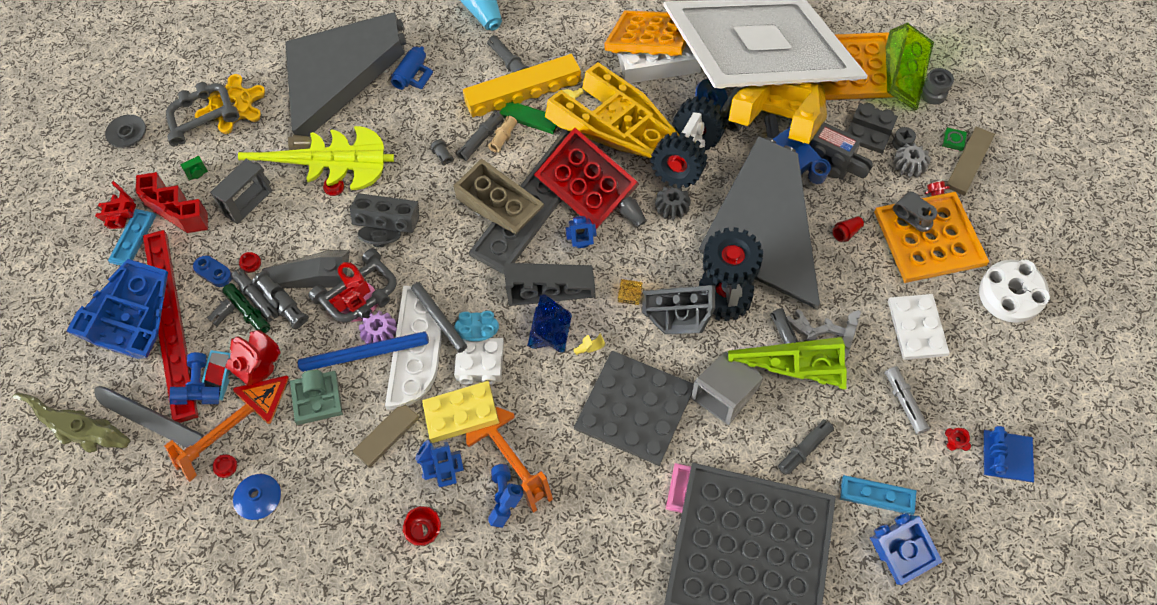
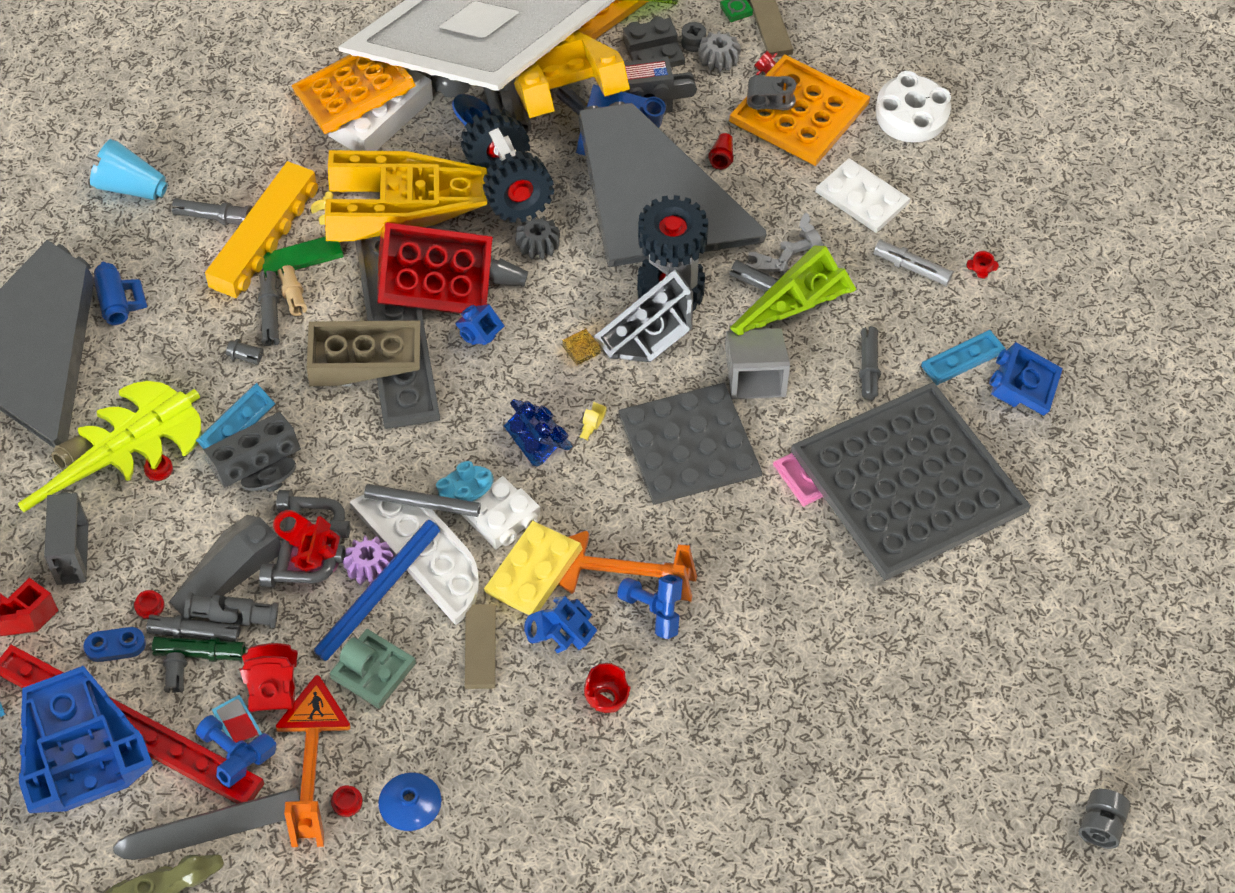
camera: 45 degrees left, 5 degrees down
(399, 188) = (240, 415): none -> dark azure tile
(557, 281) = (487, 398): dark grey wedge -> none
(1008, 455) = (1031, 248): blue hinge -> none

